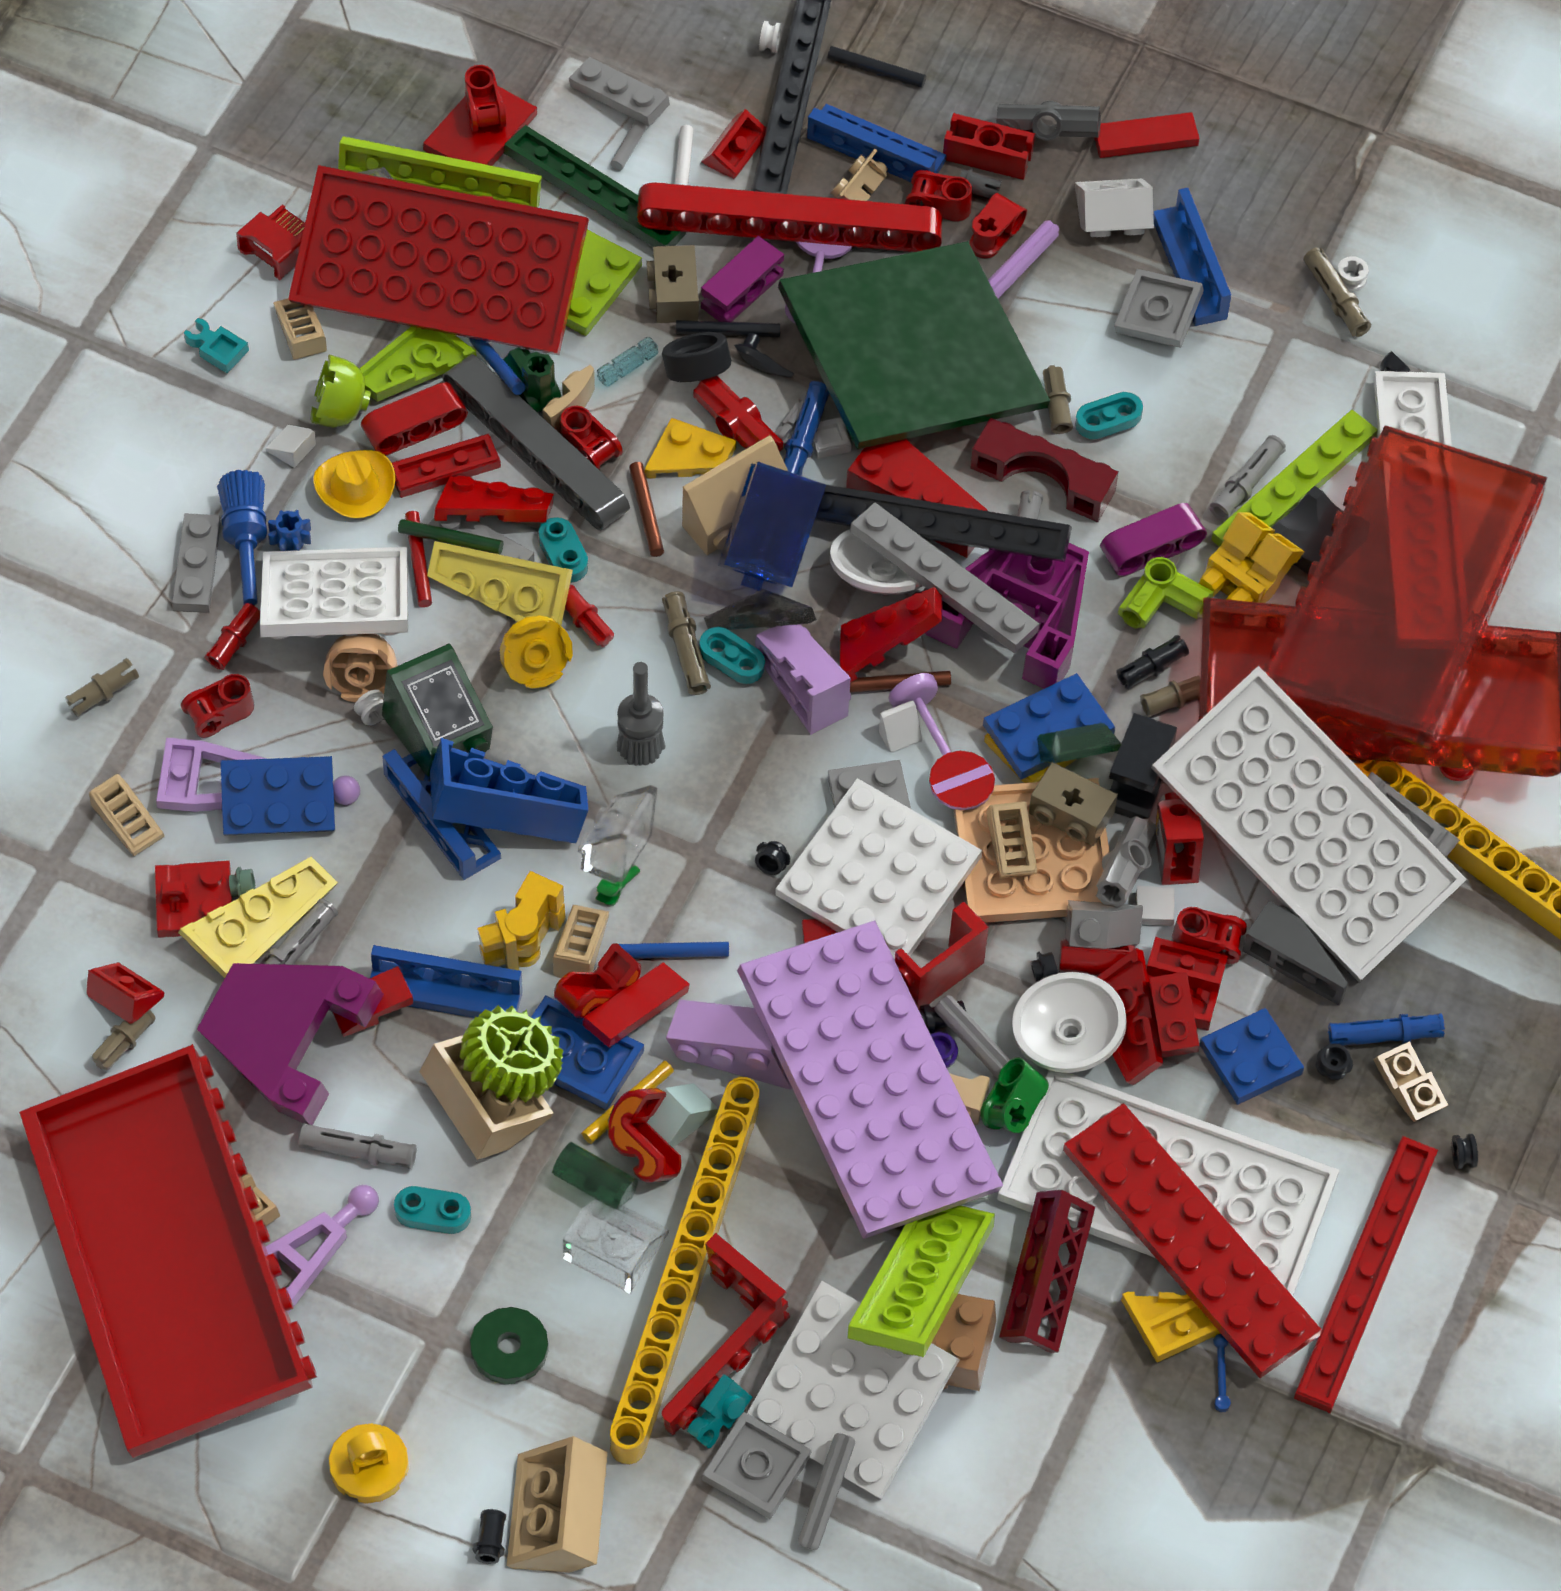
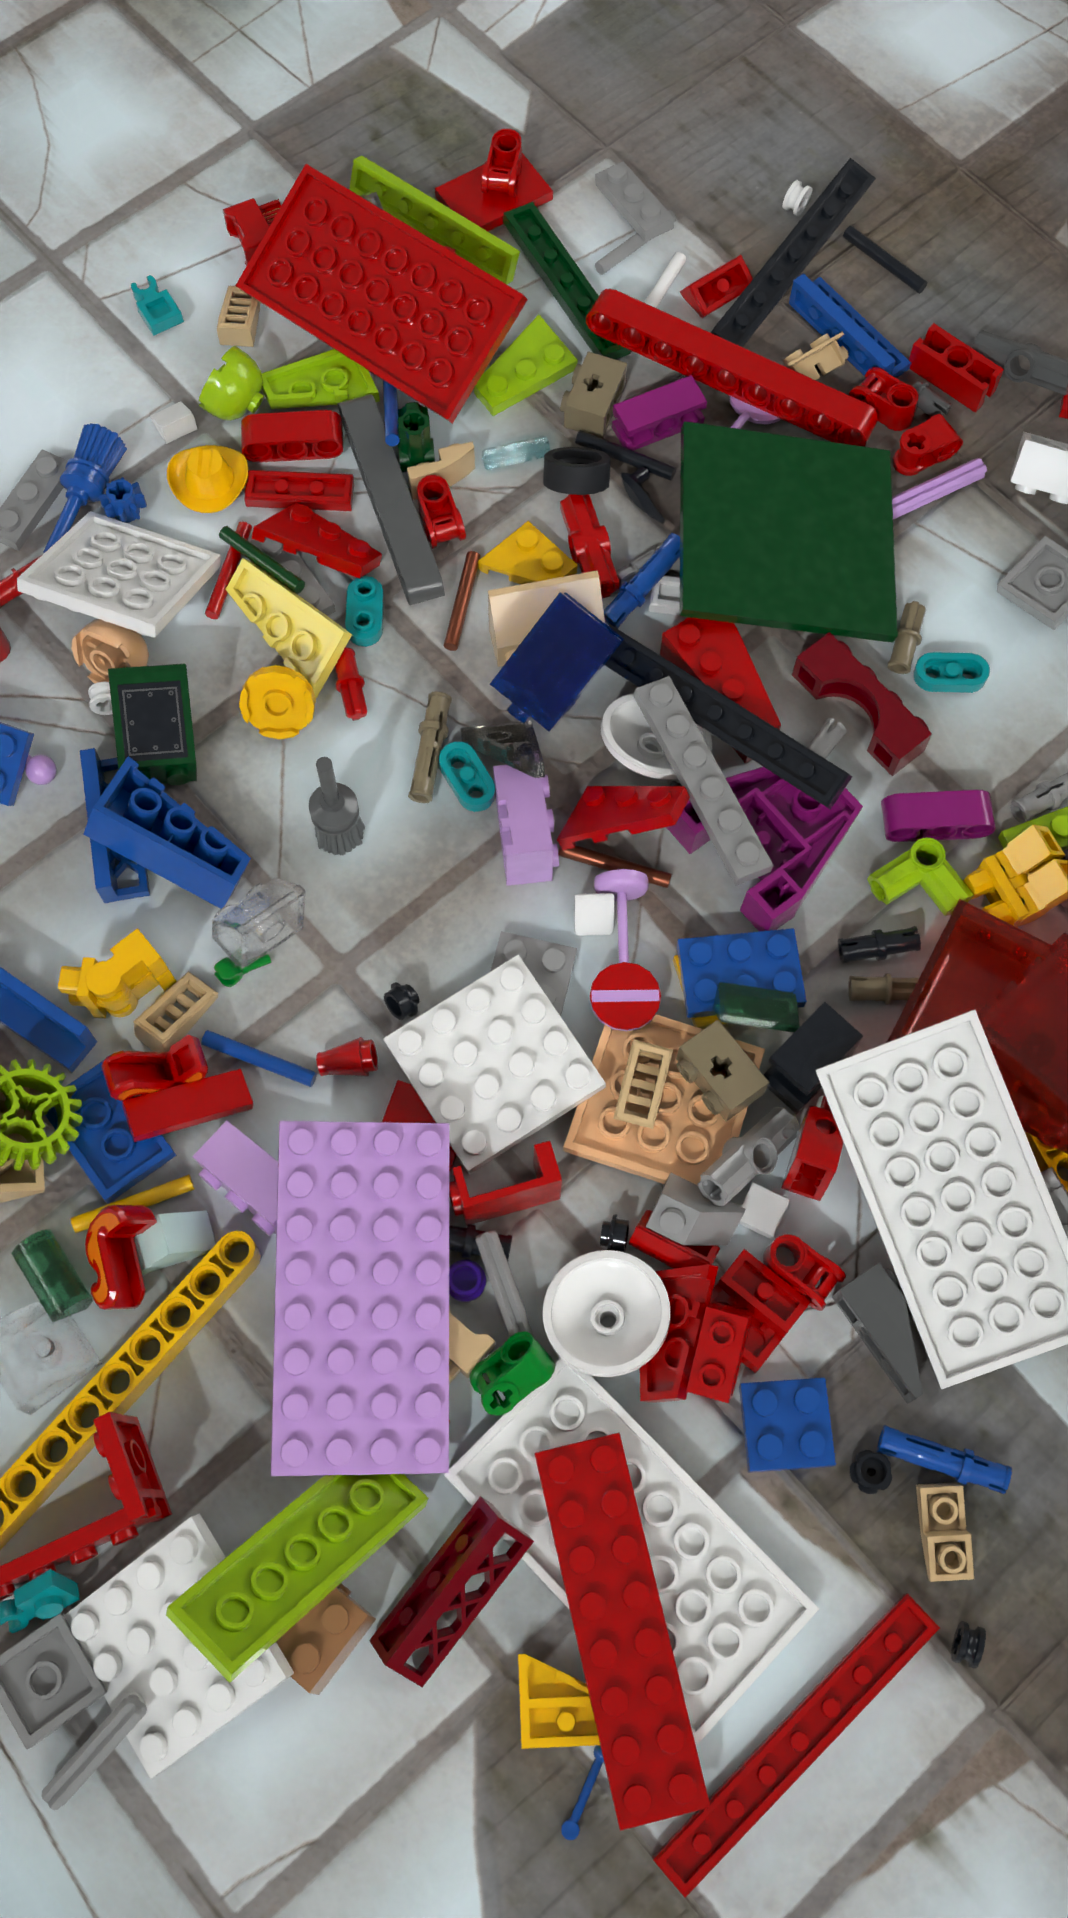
camera: 25 degrees right, 10 degrees up
(752, 919) = (349, 1059): none -> red cone

